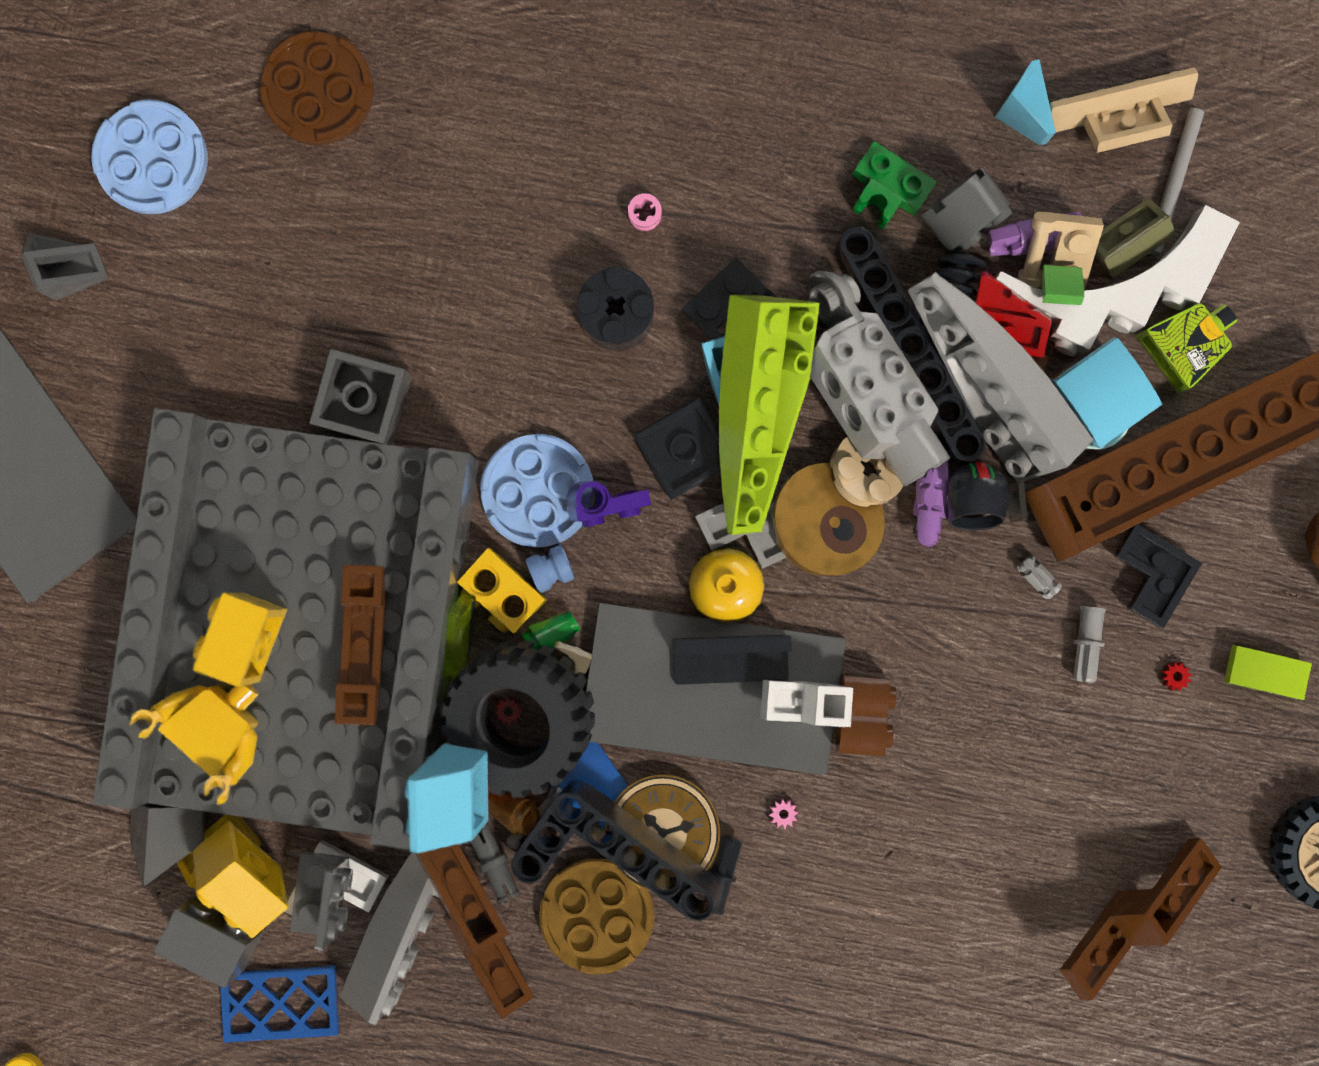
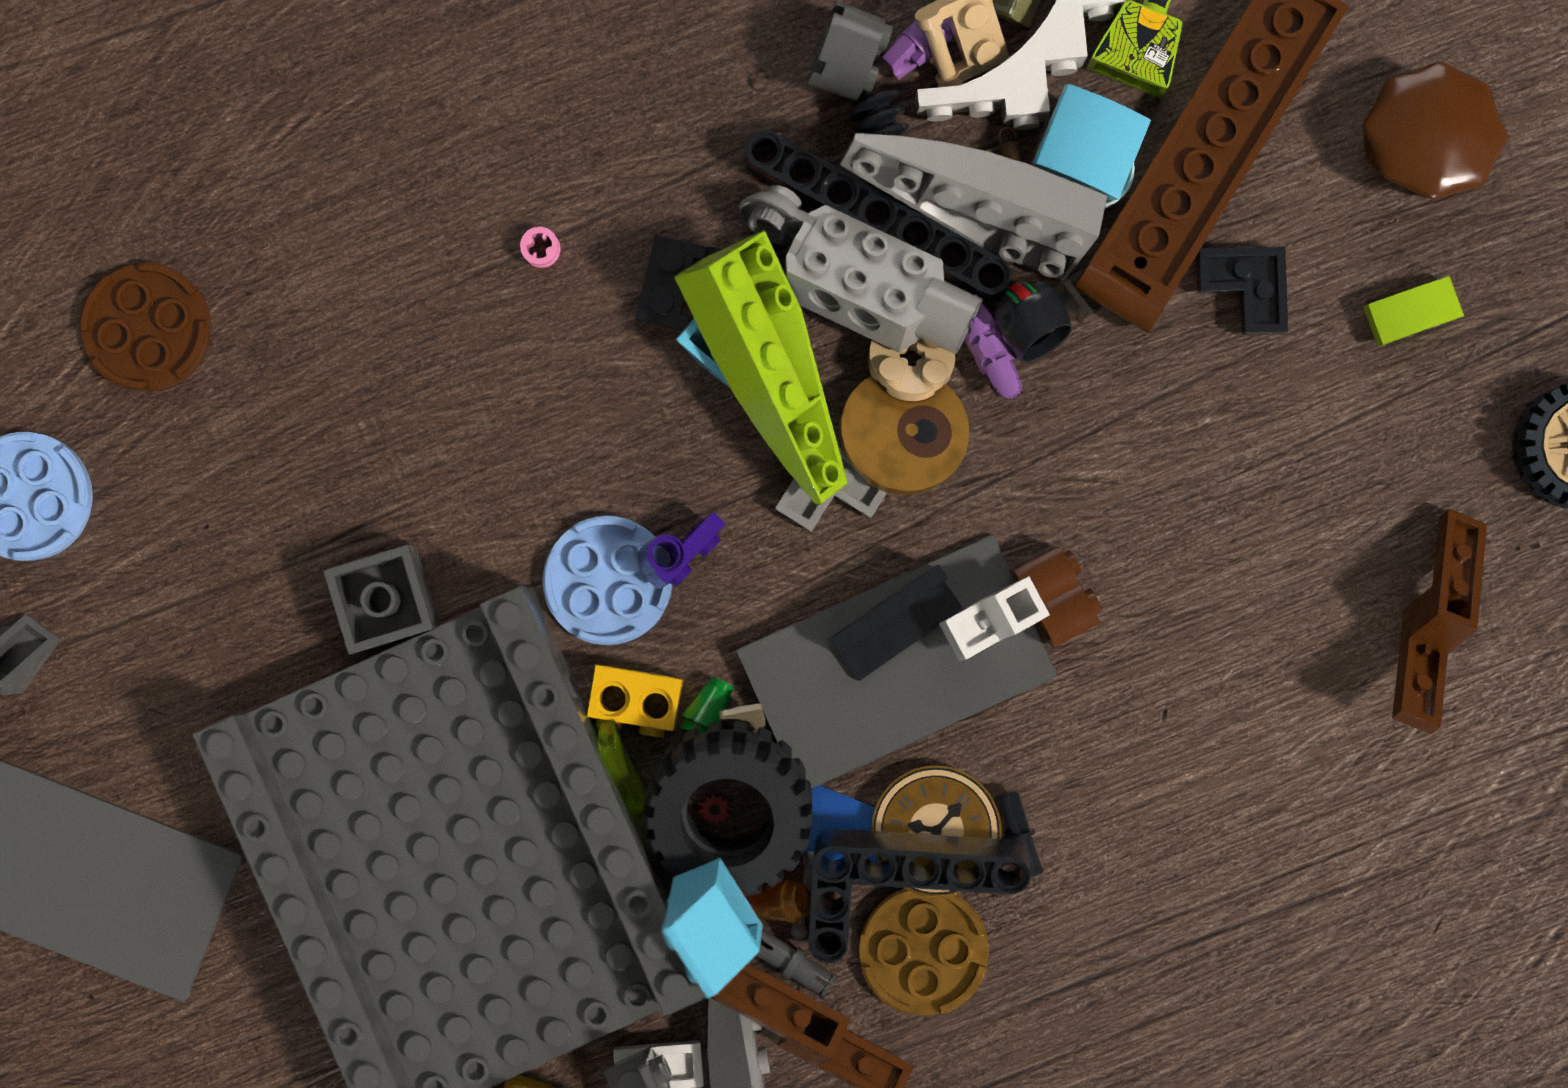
camera: 35 degrees left, 0 degrees up
(210, 730) = (441, 1007): yellow torso -> none
(238, 638) = (414, 901): yellow brick -> none
(361, 645) = (534, 834): reddish brown slope -> none
(550, 568) = (667, 648): medium blue wheel -> none
(615, 287) = (560, 336): black brick -> none
(682, 448) = (721, 451): black plate -> none
(726, 585) = (847, 556): yellow cylinder -> none
(783, 806) = (1045, 746): bright pink piece -> none
(890, 184) = (759, 71): green plate -> none
(1015, 314) = (957, 123): red wing -> none
(1039, 577) = (1140, 358): light grey piece -> none
(1062, 285) = (984, 66): bright green tile -> none
(1088, 644) = (1227, 392): light grey axle -> none
(1183, 676) = (1335, 364): red piece -> none

